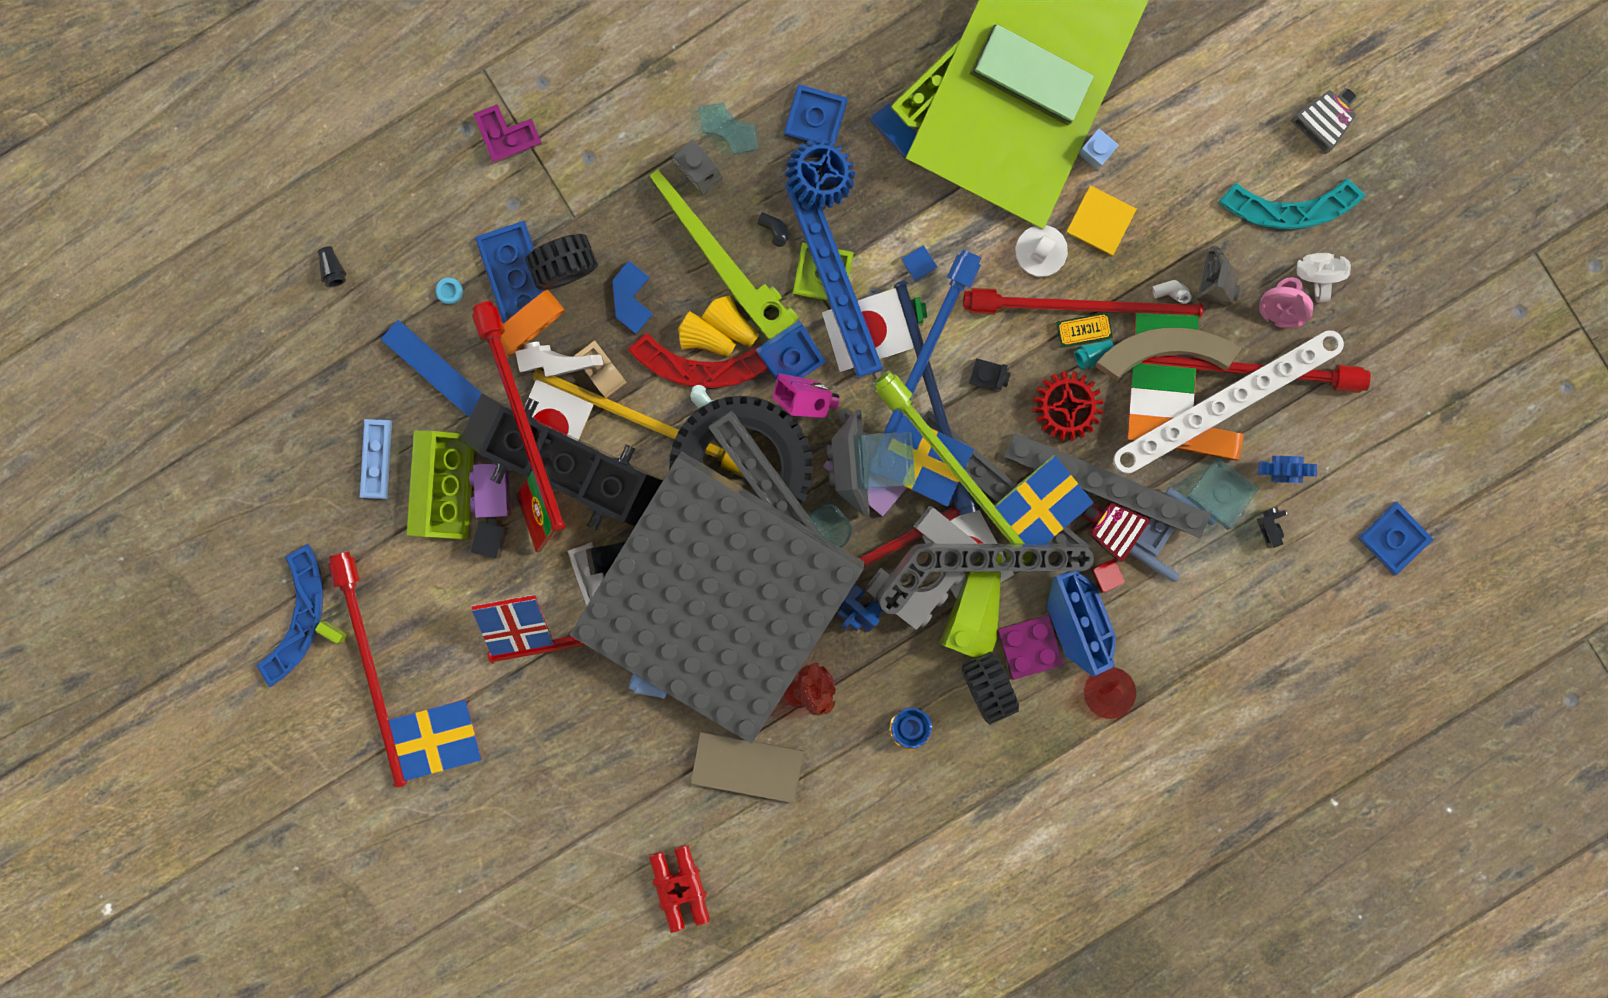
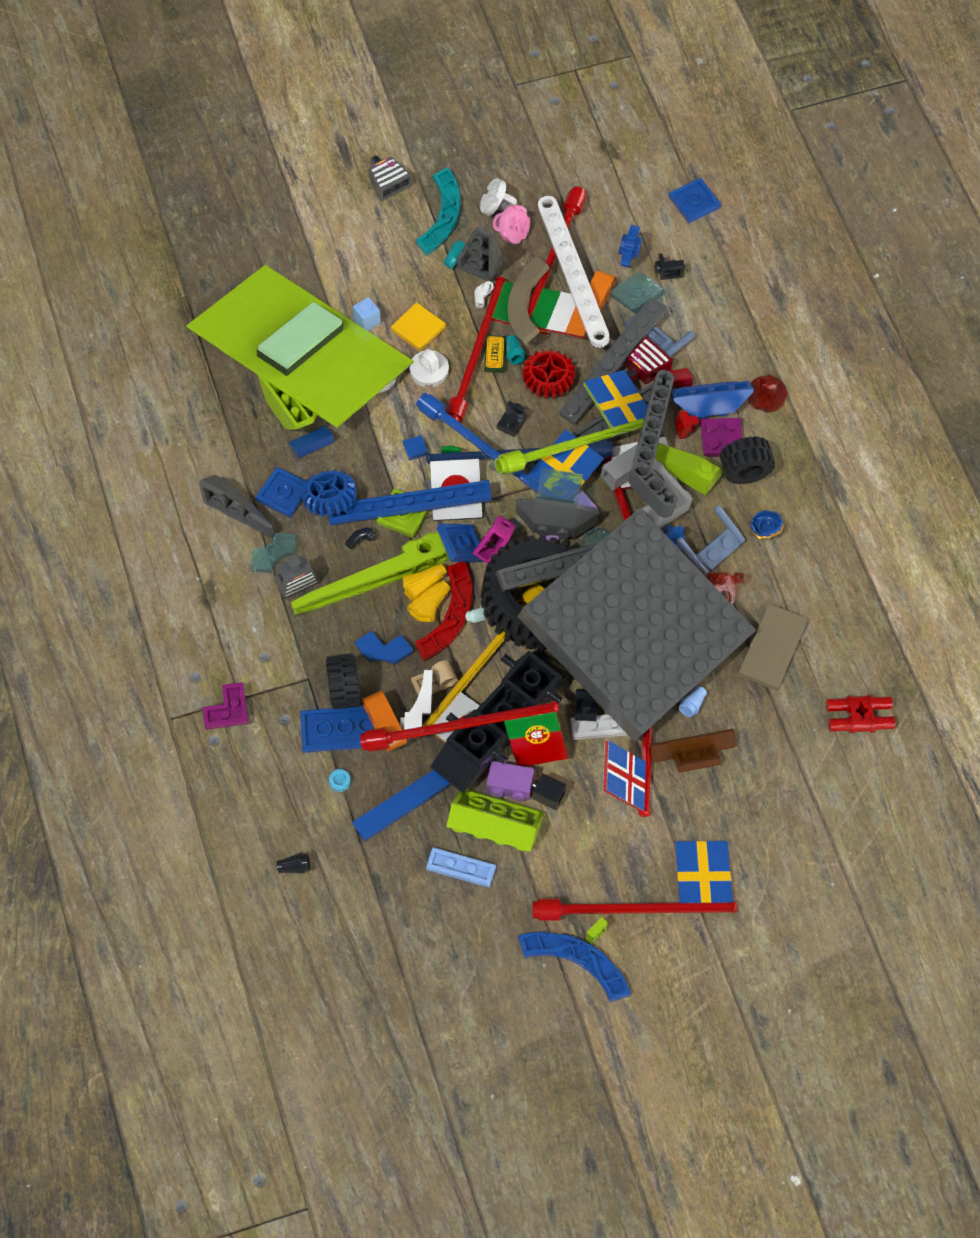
camera: 80 degrees left, 25 degrees down
(579, 701) = (694, 751): none -> reddish brown bracket
(786, 47) = (226, 498): none -> dark grey wedge
(863, 672) = (718, 548): none -> sand blue plate
(1033, 596) = (685, 424): none -> red tile
(1228, 242) = (451, 258): none -> teal cone

